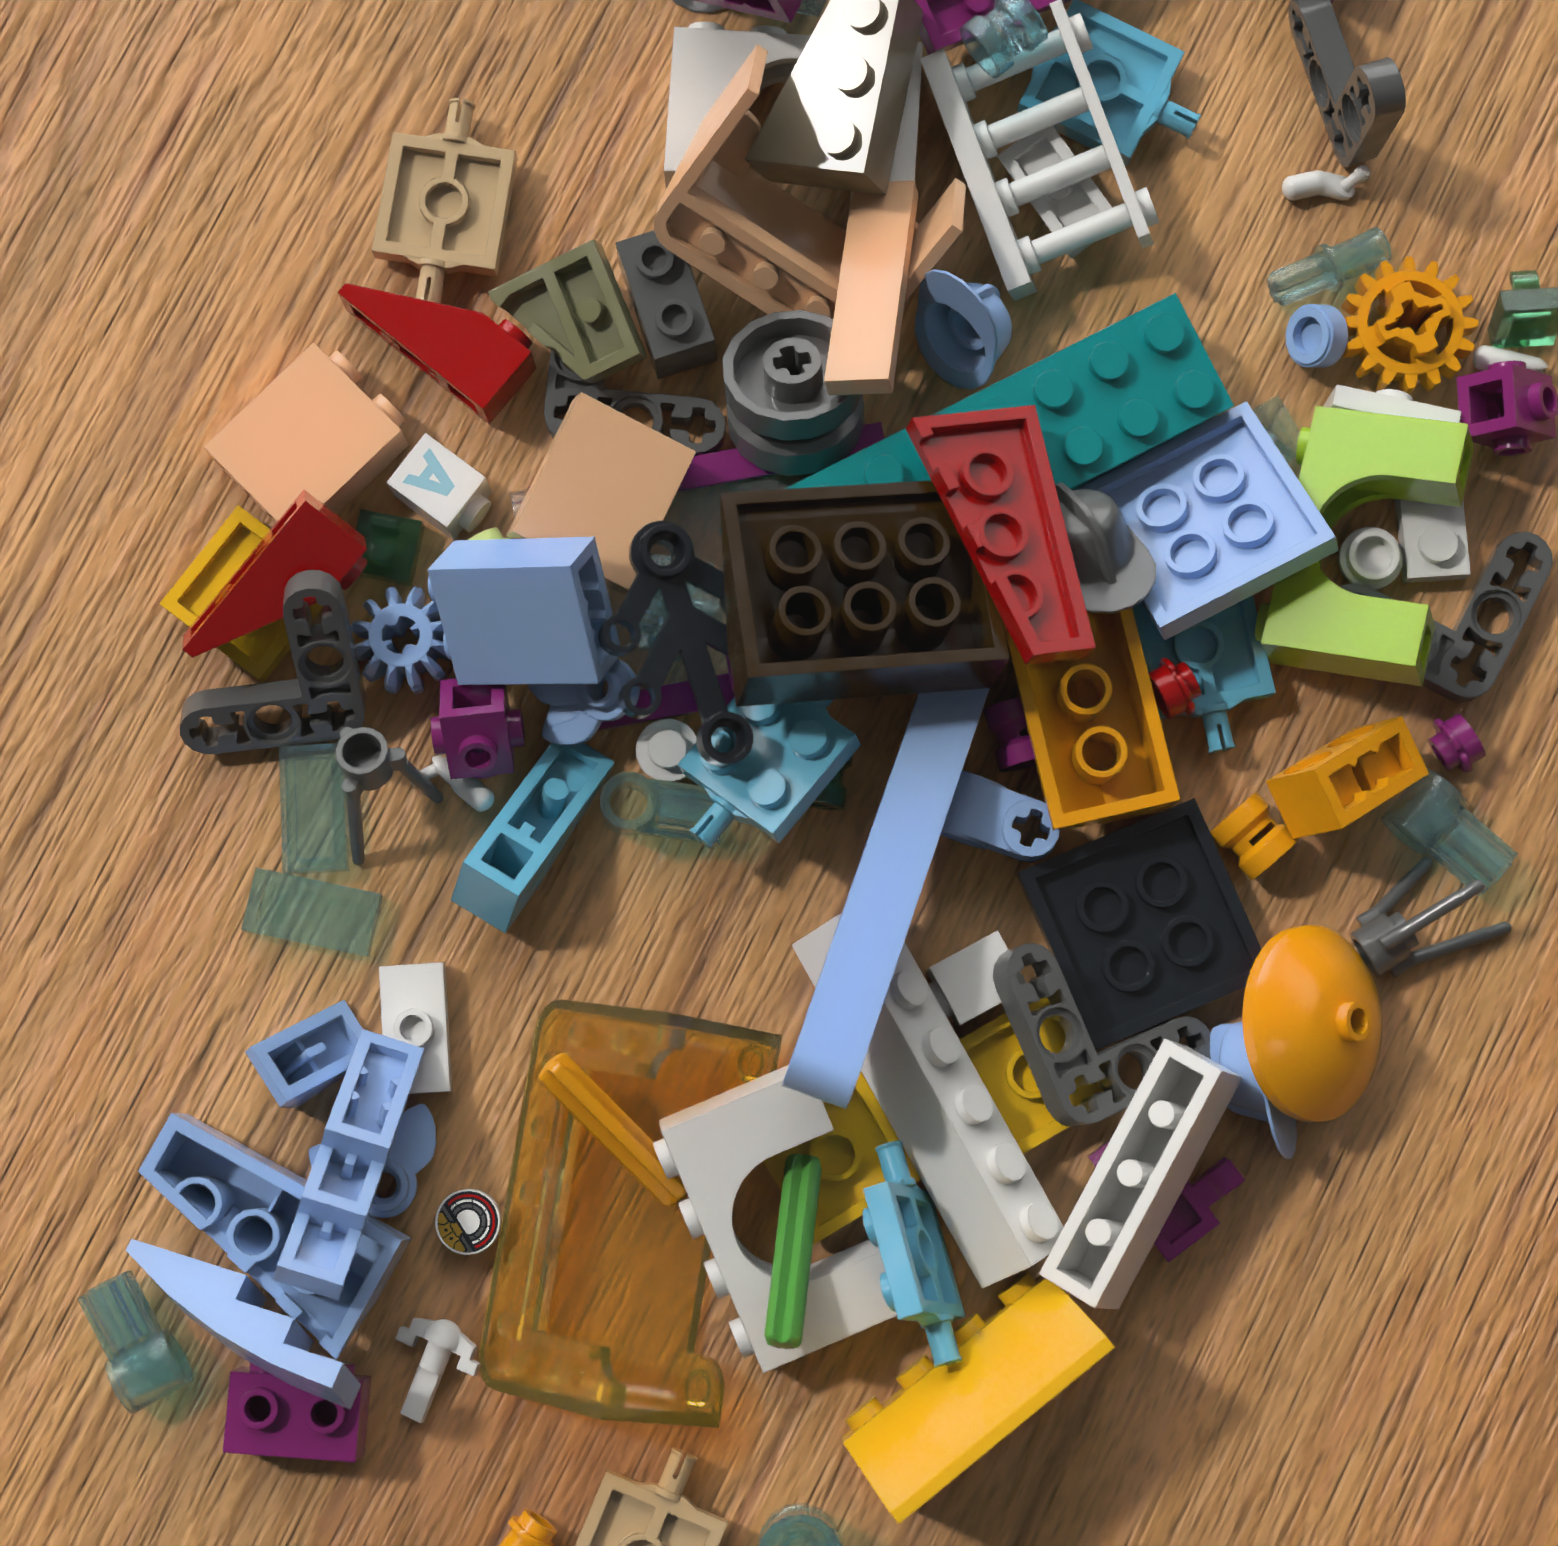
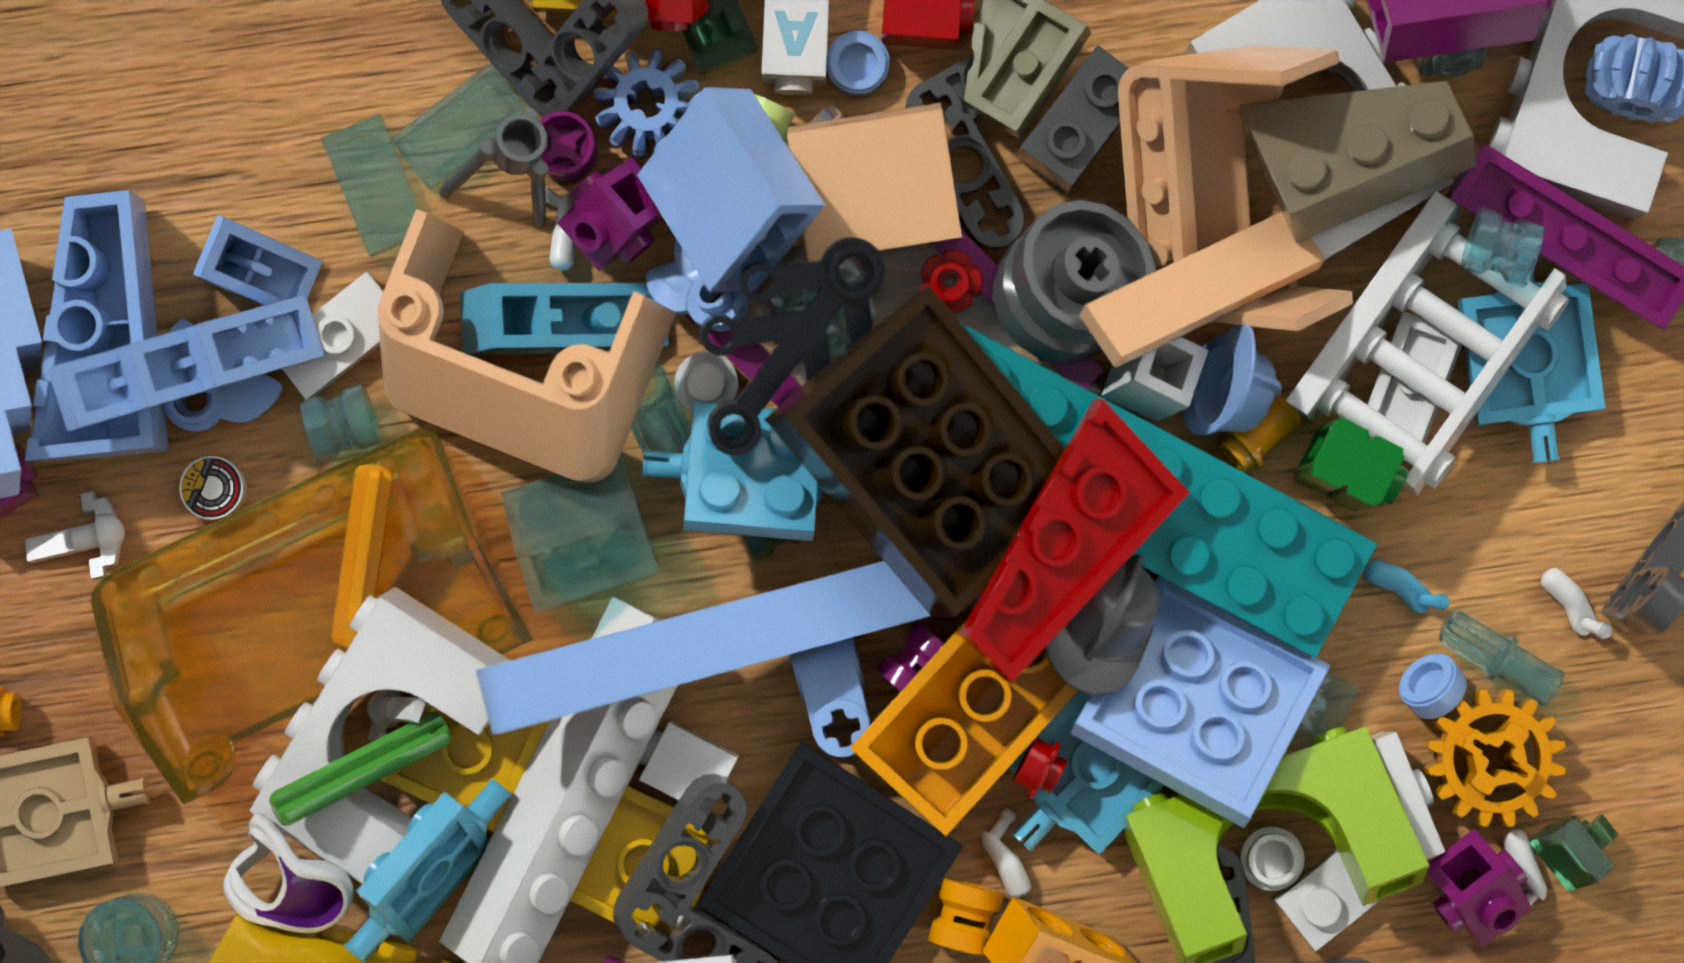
camera: 55 degrees right, 5 degrees up
(393, 720) = (563, 132): none -> magenta wheel
(489, 1074) = (340, 422): none -> clear light blue wheel
(493, 450) = (857, 63): none -> light blue tile
(622, 887) = (564, 425): none -> light nougat windscreen
(710, 479) = (953, 263): none -> red plate
(721, 935) = (579, 537): none -> clear light blue slope
(756, 1200) = (388, 709): none -> white piece
(869, 1361) = (311, 894): none -> white piece
(922, 382) = (1158, 380): none -> white brick
(1023, 346) = (1248, 448): none -> light orange pin
(1096, 274) = (1351, 466): none -> green brick
(1222, 304) = (1404, 585): none -> medium azure piece
(1226, 774) = (1006, 861): none -> white piece

